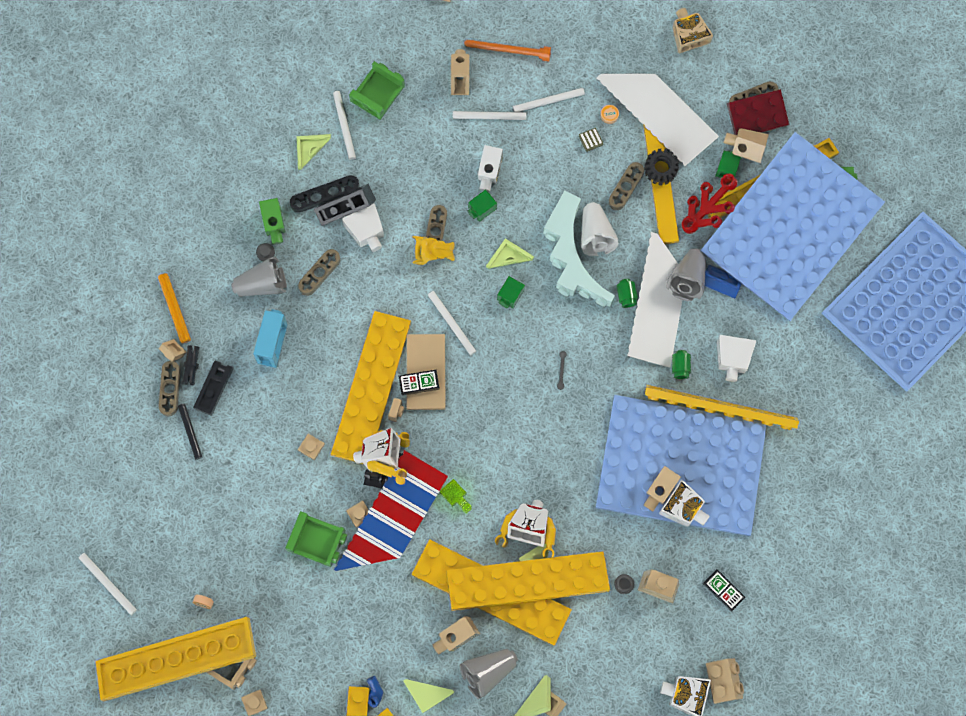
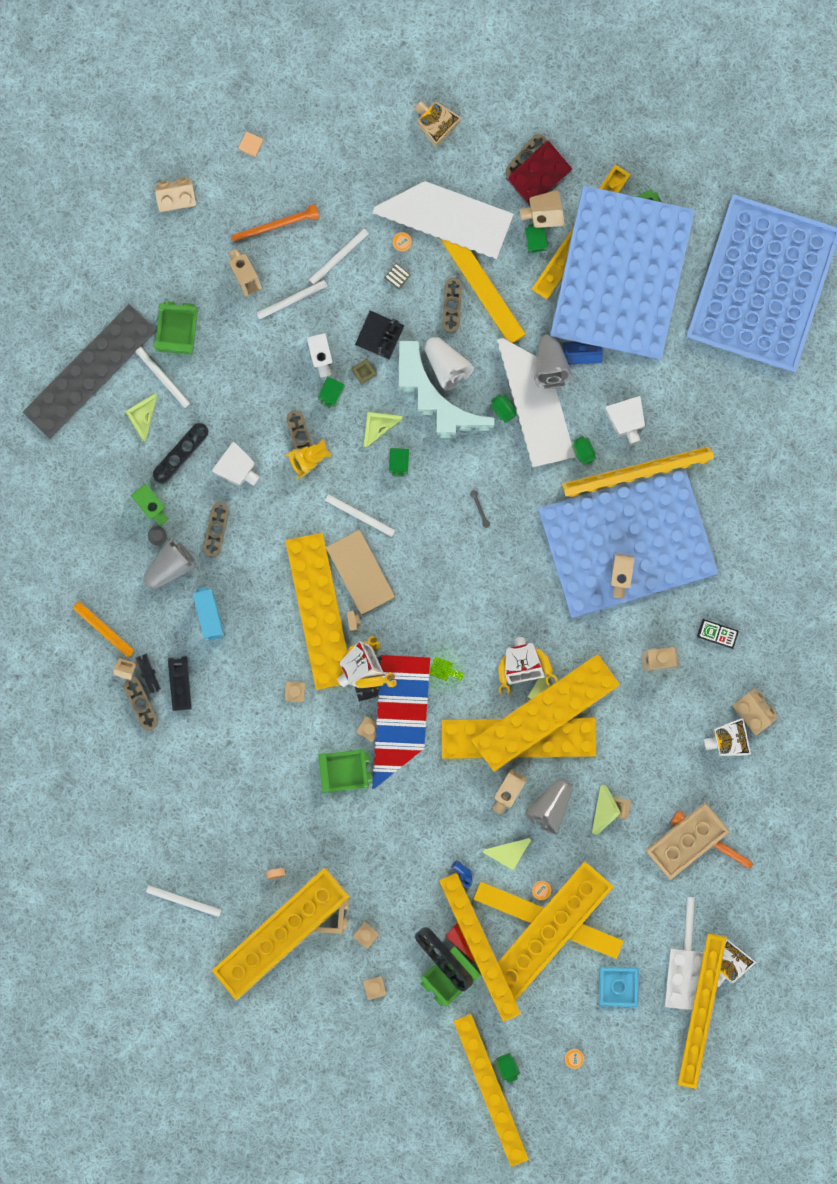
camera: 25 degrees left, 10 degrees up
(190, 431) = (181, 733): black bar -> none
(284, 90) = (89, 371): none -> dark grey plate
(345, 204) = (207, 454): black slope -> none
(419, 382) = (360, 586): tile -> none
(520, 204) = (364, 371): none -> olive tile
(550, 180) = (379, 335): none -> black hinge
(624, 584) = (629, 672): dark grey plate -> none
(665, 157) = (476, 283): black tyre -> none
(684, 506) = (649, 579): torso -> none
(694, 220) = (536, 289): red plant -> none

